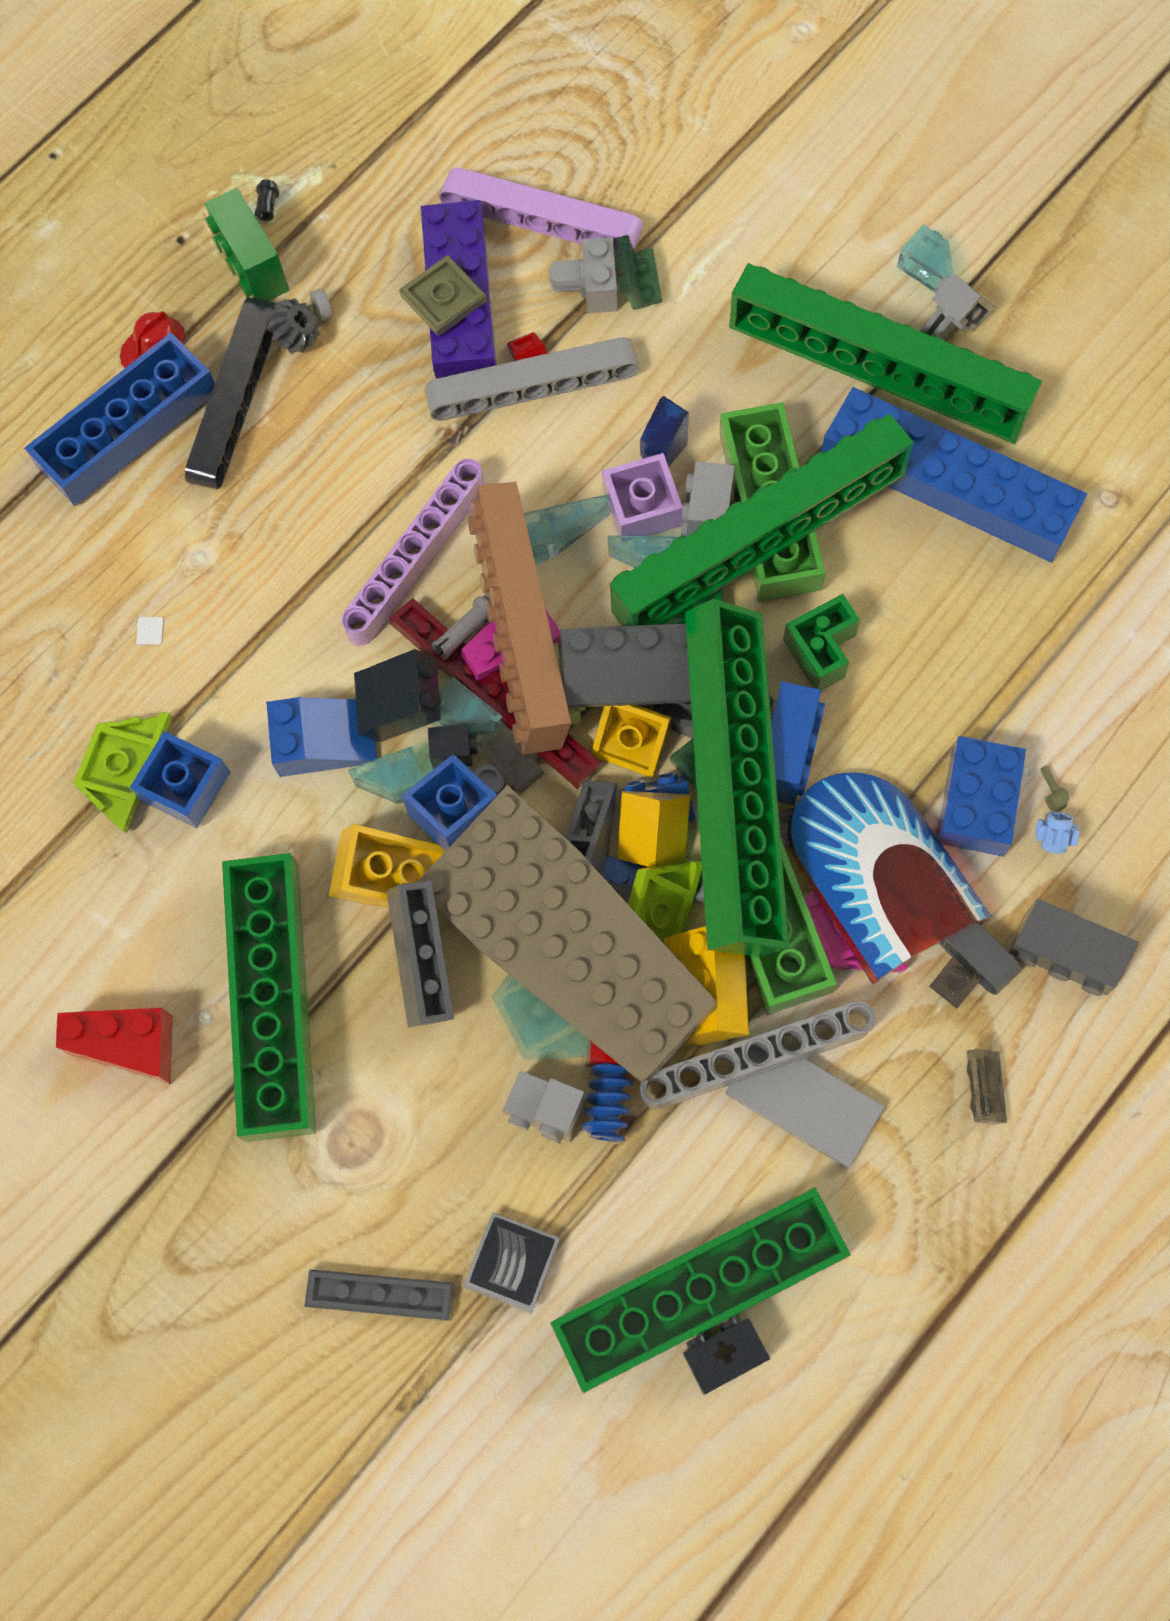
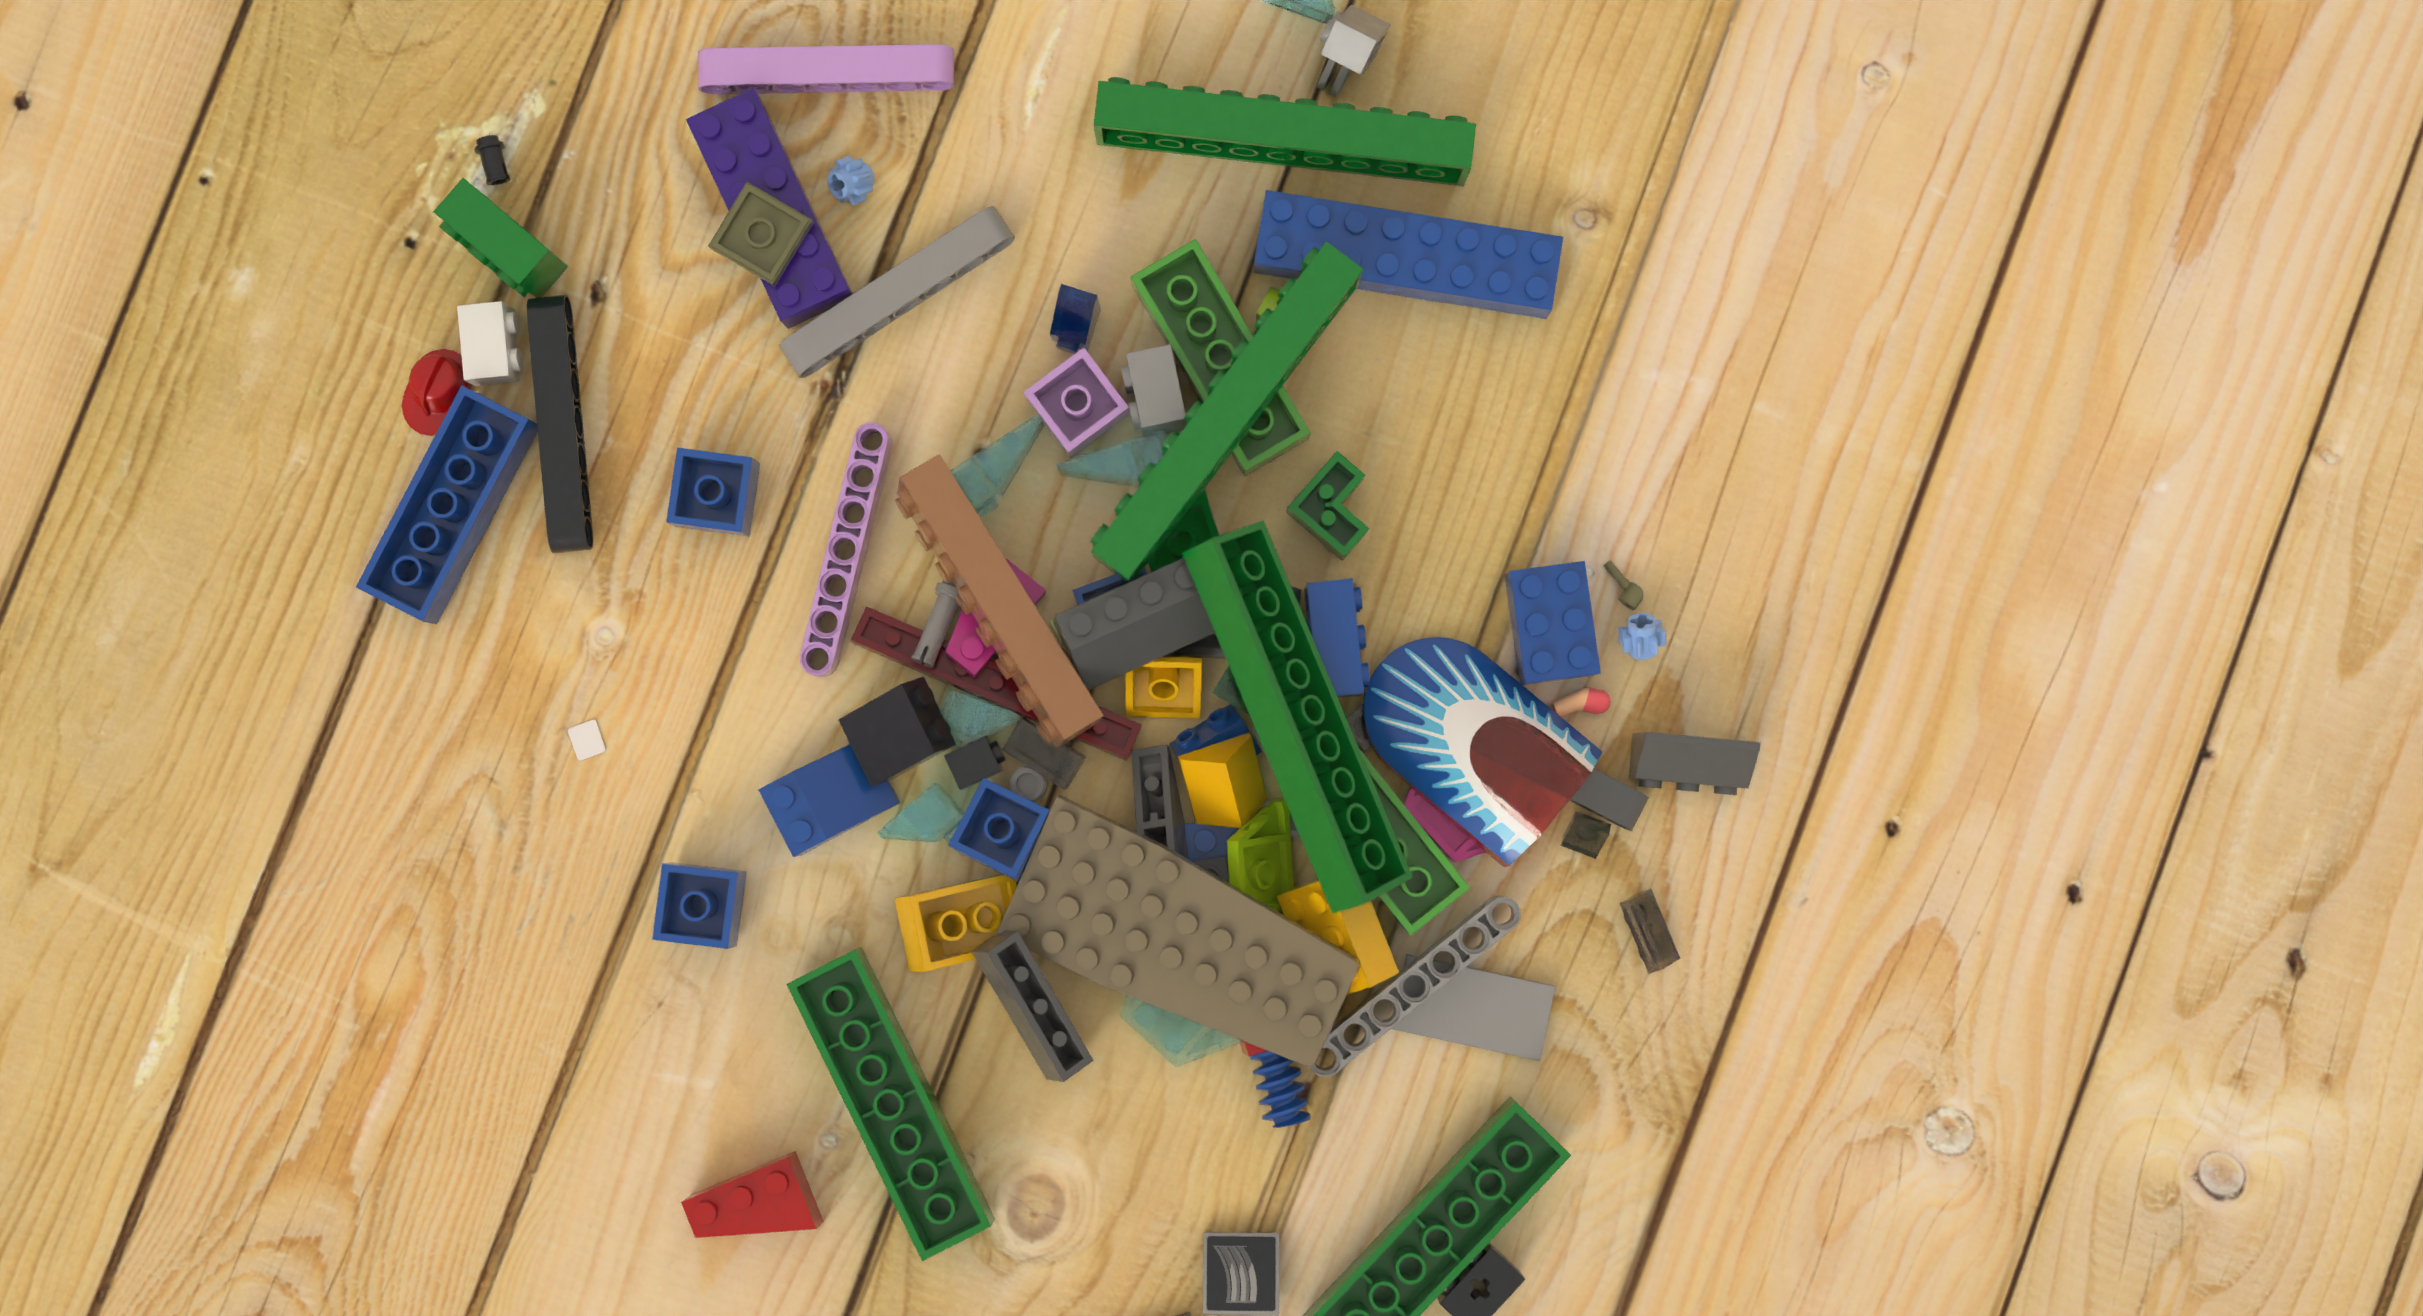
camera: 25 degrees left, 15 degrees up
(113, 763) = (621, 907): lime wing -> none
(206, 319) = (489, 343): none -> white brick
(293, 325) = (597, 321): dark grey gear -> none
(321, 304) = (616, 278): light grey tile -> none
(328, 473) = (713, 492): none -> blue brick
(526, 347) = (877, 253): red slope -> none
(528, 289) = (850, 180): none -> light blue gear
(546, 1106) = (1218, 1111): light grey brick -> none
(591, 275) = (917, 138): light grey brick -> none
(639, 272) = (972, 116): clear green bracket -> none
(988, 869) = (1585, 700): none -> arm

